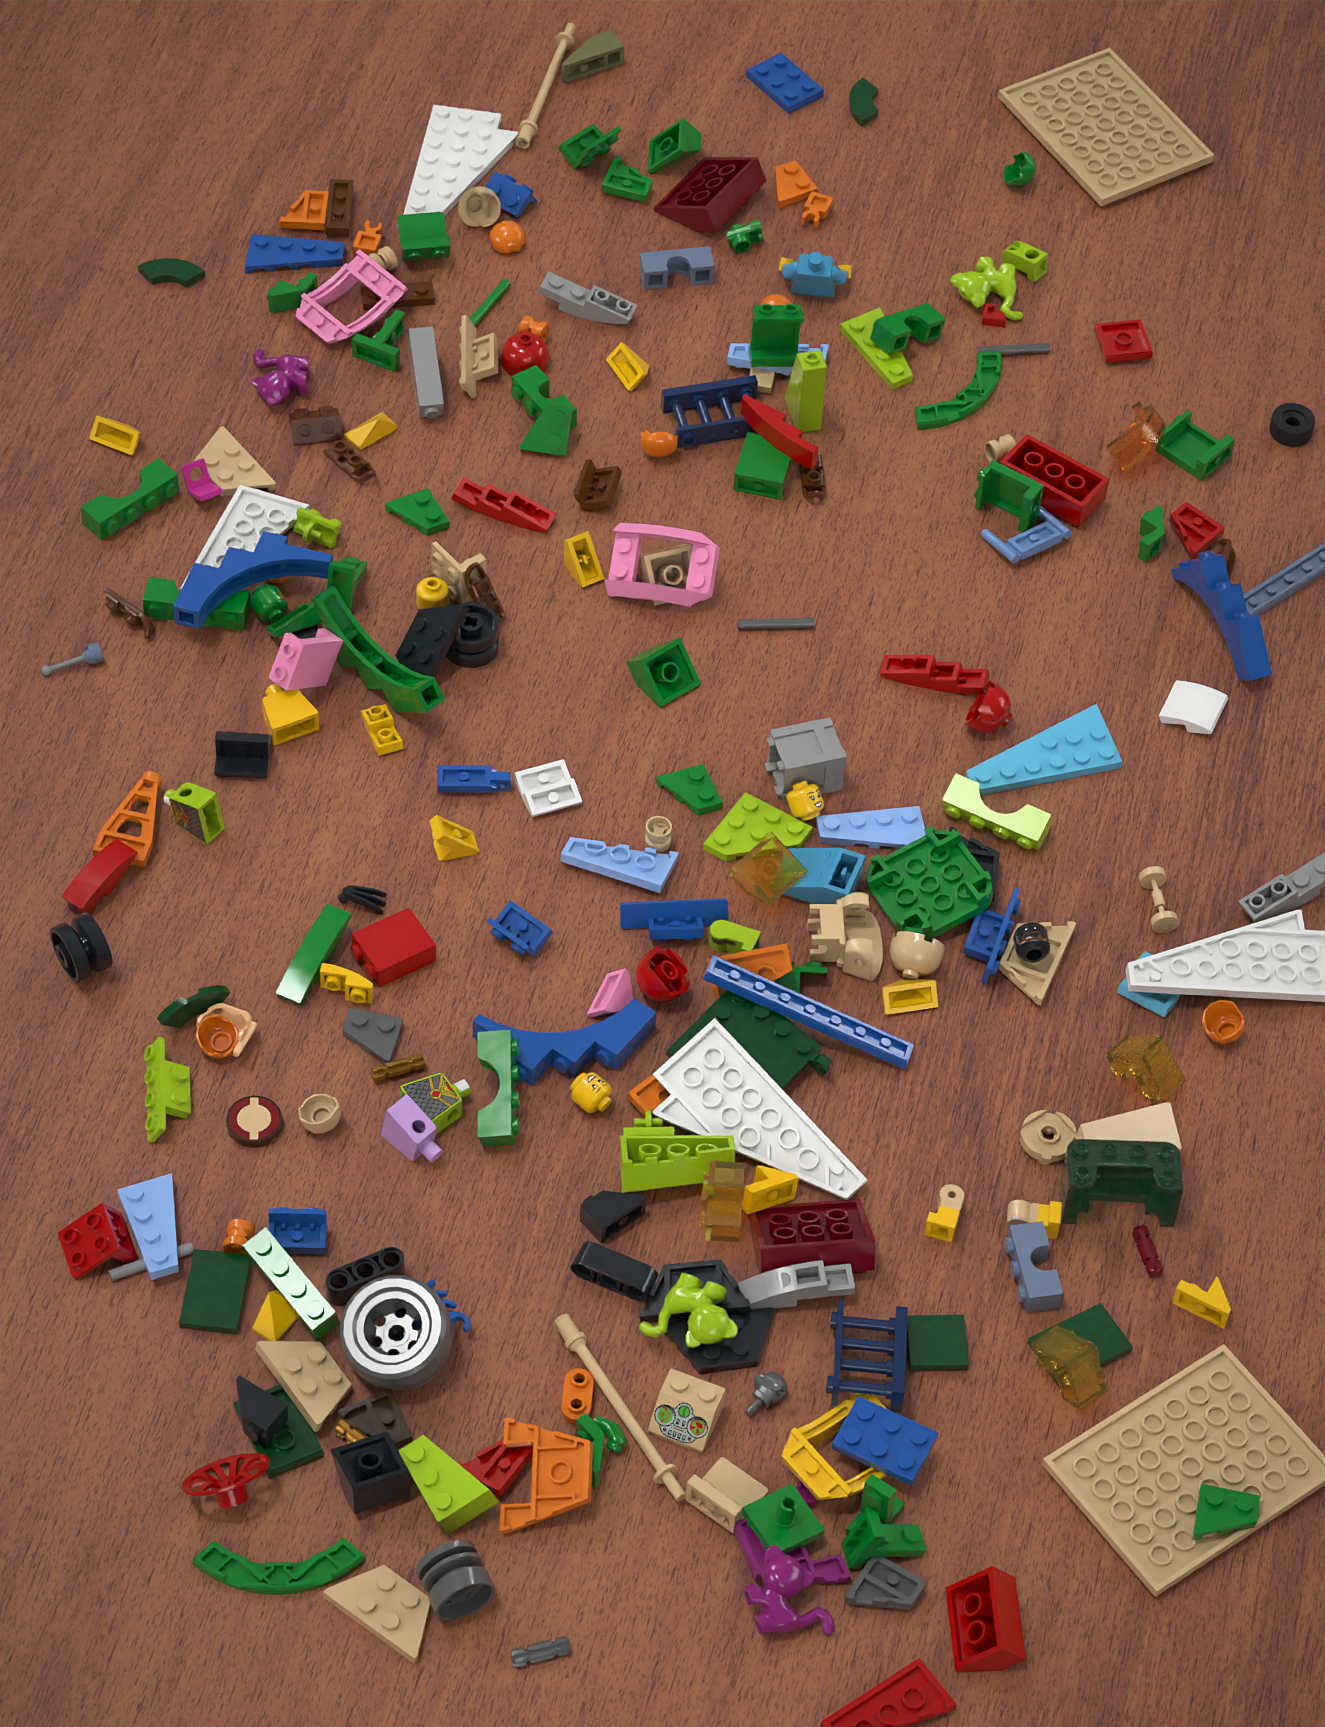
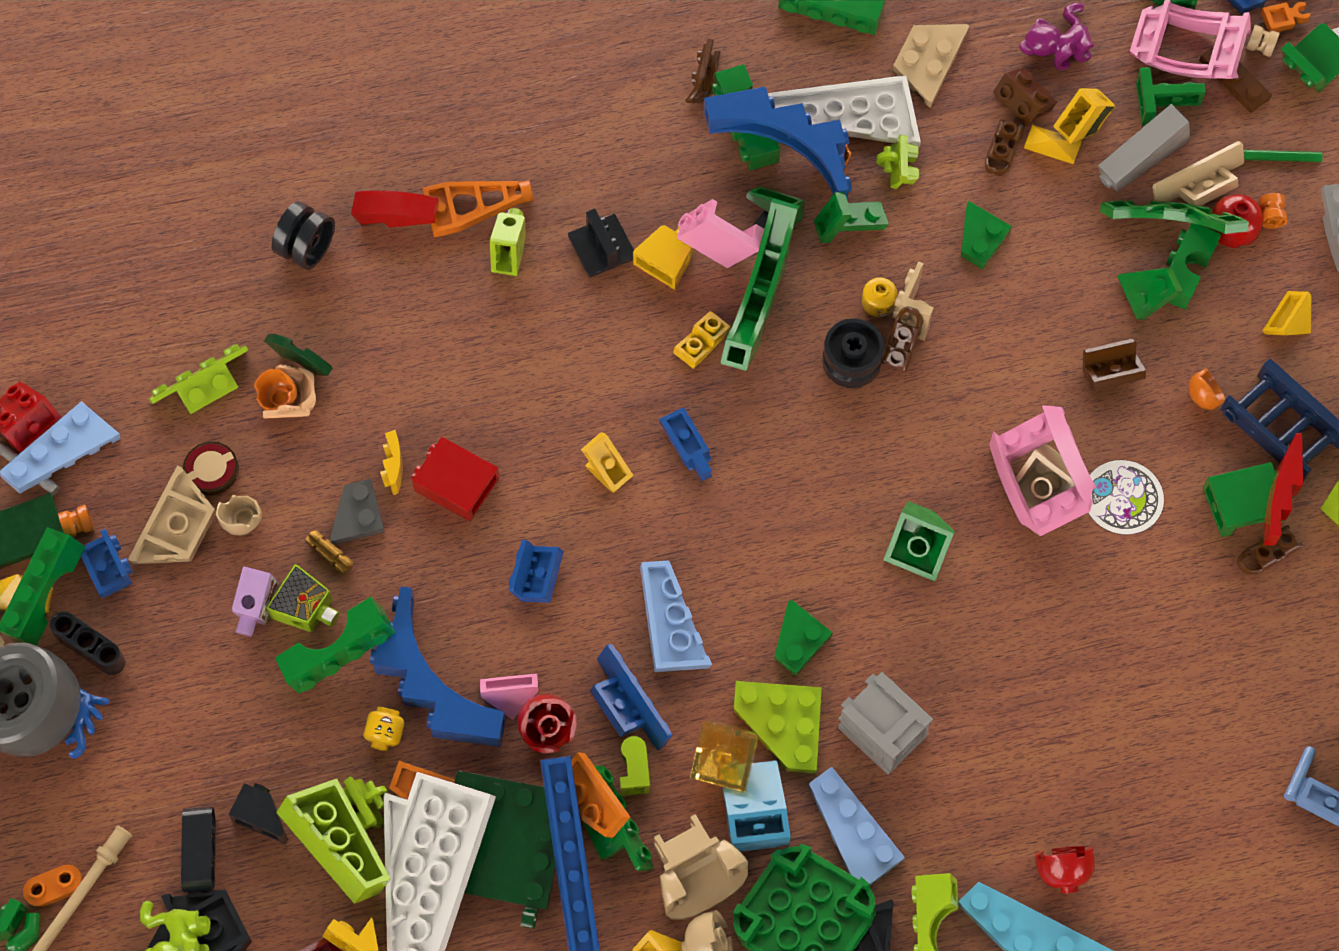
camera: 65 degrees right, 15 degrees up
(91, 654) = (639, 71): hinge -> none
(203, 488) = (886, 50): dark pink bracket -> none
(268, 603) = (783, 172): green head -> none
(292, 1163) = (175, 524): none -> tan wing
(315, 949) = (411, 417): green slope -> none
(363, 897) = (497, 417): black piece -> none
(368, 392) = (1084, 115): none -> yellow torso
(430, 638) = (810, 324): black wing -> none
(496, 380) = (1175, 211): none -> green tile
(511, 508) = (1035, 299): red slope -> none
(547, 788) = (720, 512): white slope -> none
(582, 559) = (1010, 401): yellow slope -> none
(658, 833) = (720, 629): tan wheel -> none
(719, 530) = (1125, 497): none -> sticker
(723, 1196) = (315, 909): clear yellow brick -> none
(785, 623) = (1054, 611): dark grey bar -> none
(805, 800) = (838, 747): yellow head -> none
(927, 673) = (1084, 791): red slope -> none

